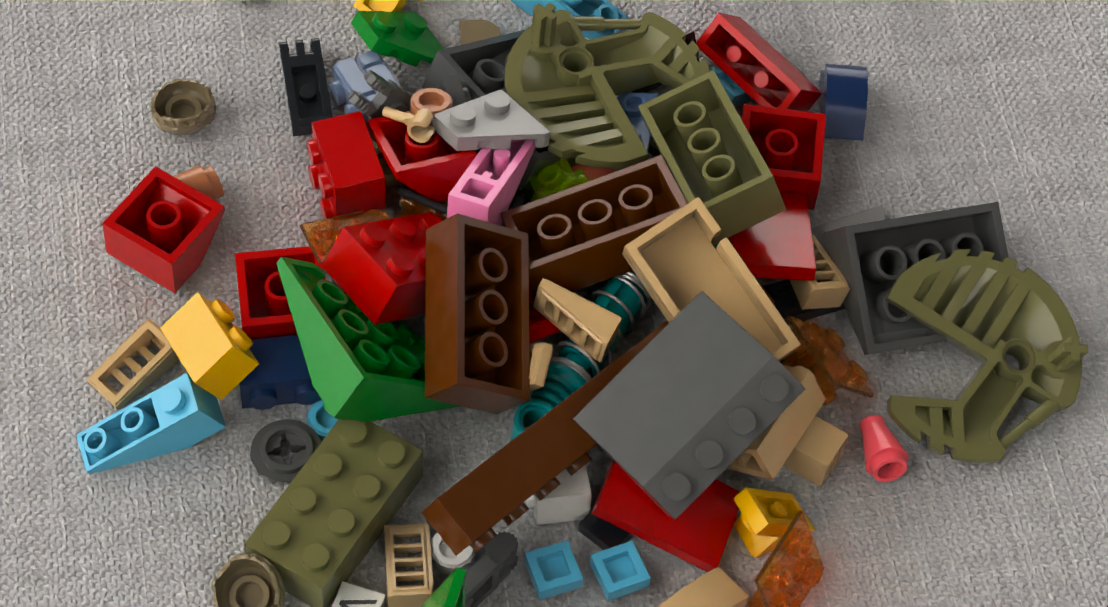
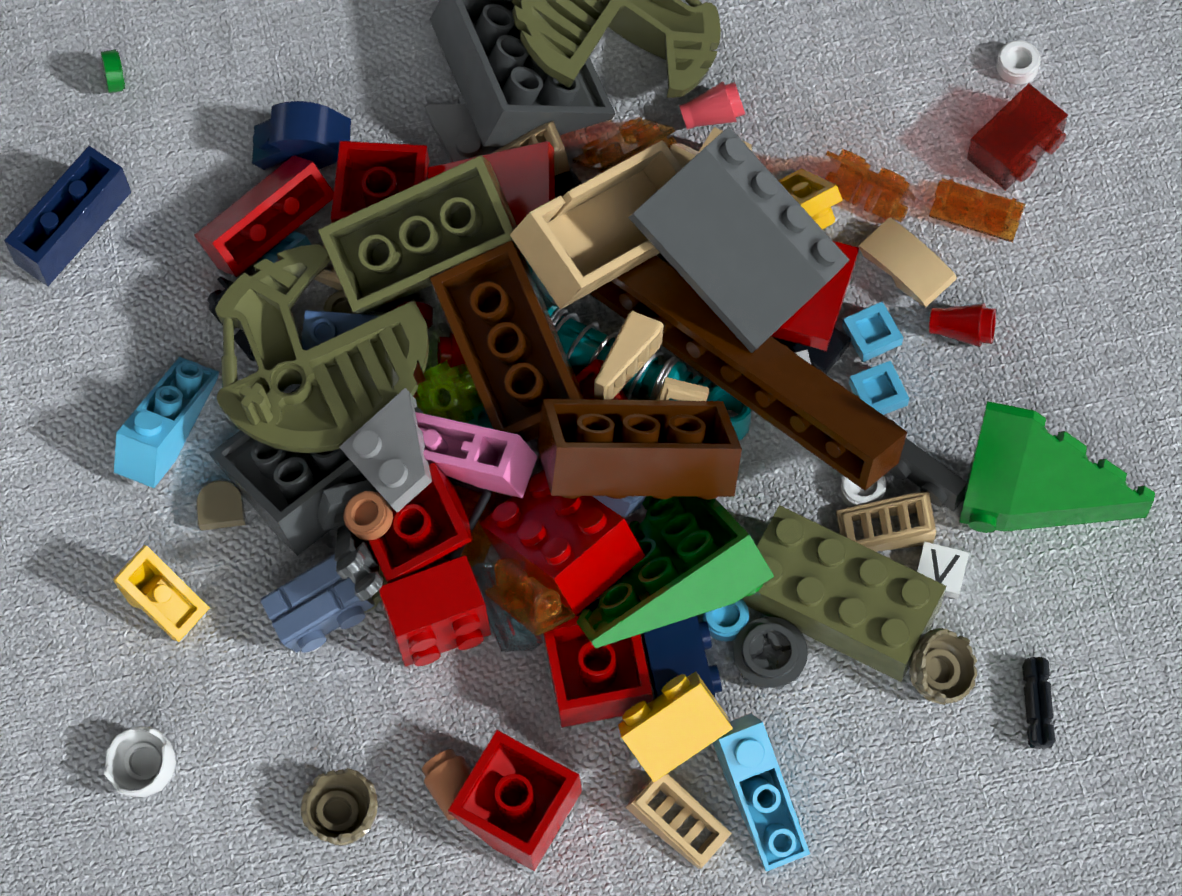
camera: 85 degrees left, 10 degrees up
(305, 86) = (297, 680): black hinge -> none
(397, 35) = (234, 577): green wing -> none
(417, 124) = (398, 517): tan hand -> none

